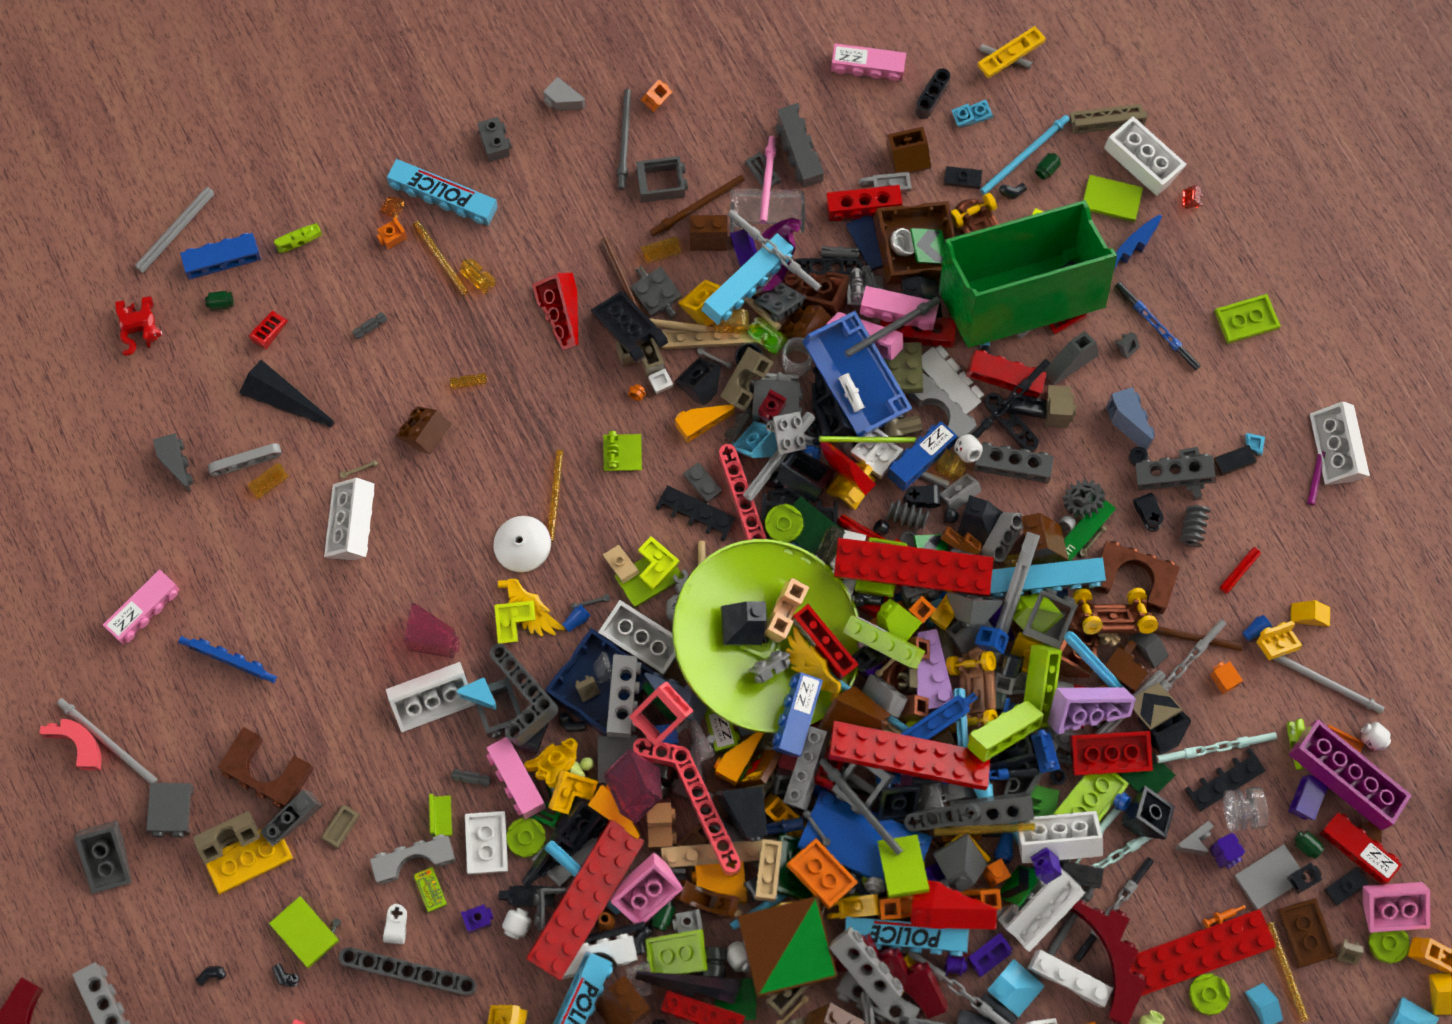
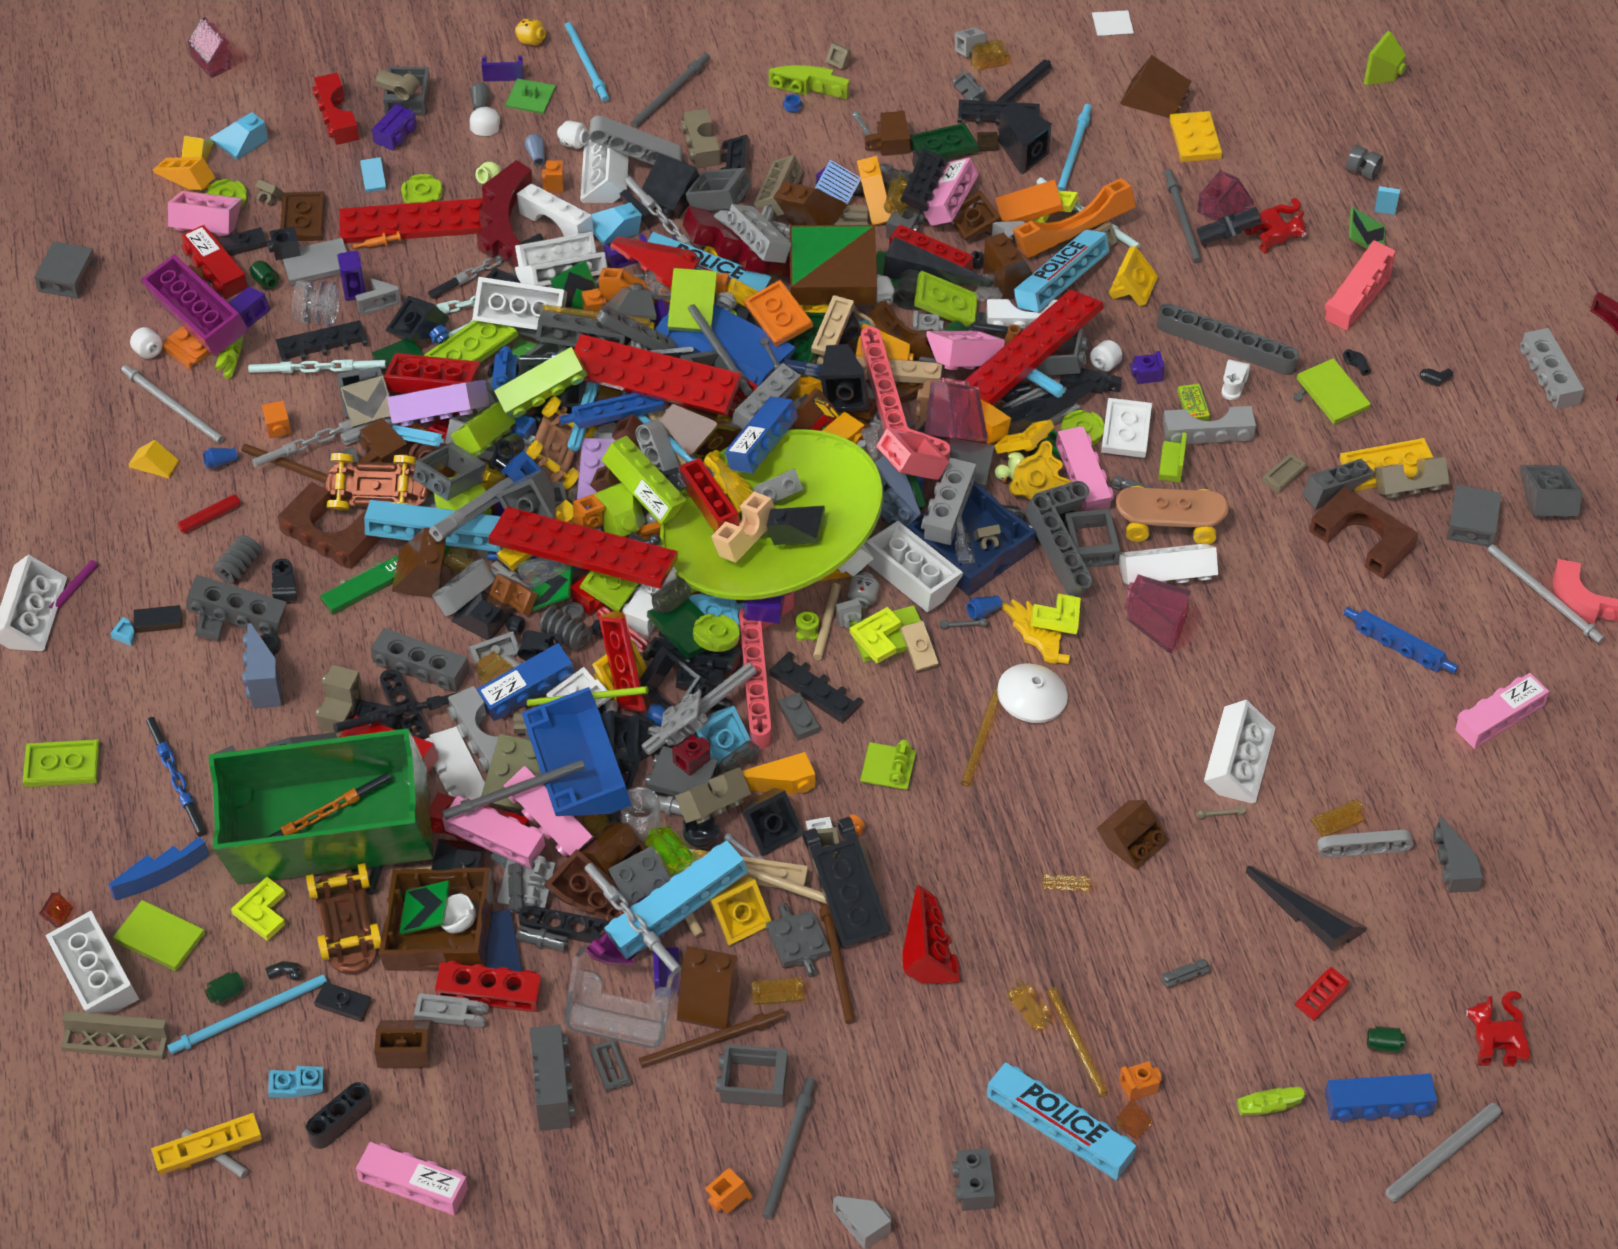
camera: 165 degrees left, 20 degrees down
(433, 747) = (1172, 509): none -> nougat piece
(478, 693) = (1113, 535): medium azure slope -> none
(770, 153) = (592, 1081): bright pink bar -> none
(851, 392) = (589, 740): white pin -> none
(968, 448) = (469, 669): white head -> none
(1046, 865) = (544, 273): dark purple brick -> none
(1067, 523) = (383, 590): light grey hinge -> none
(1084, 498) = (344, 605): dark grey gear -> none
(1278, 640) = (202, 436): yellow bracket -> none
(1288, 973) = (337, 192): clear yellow piece -> none

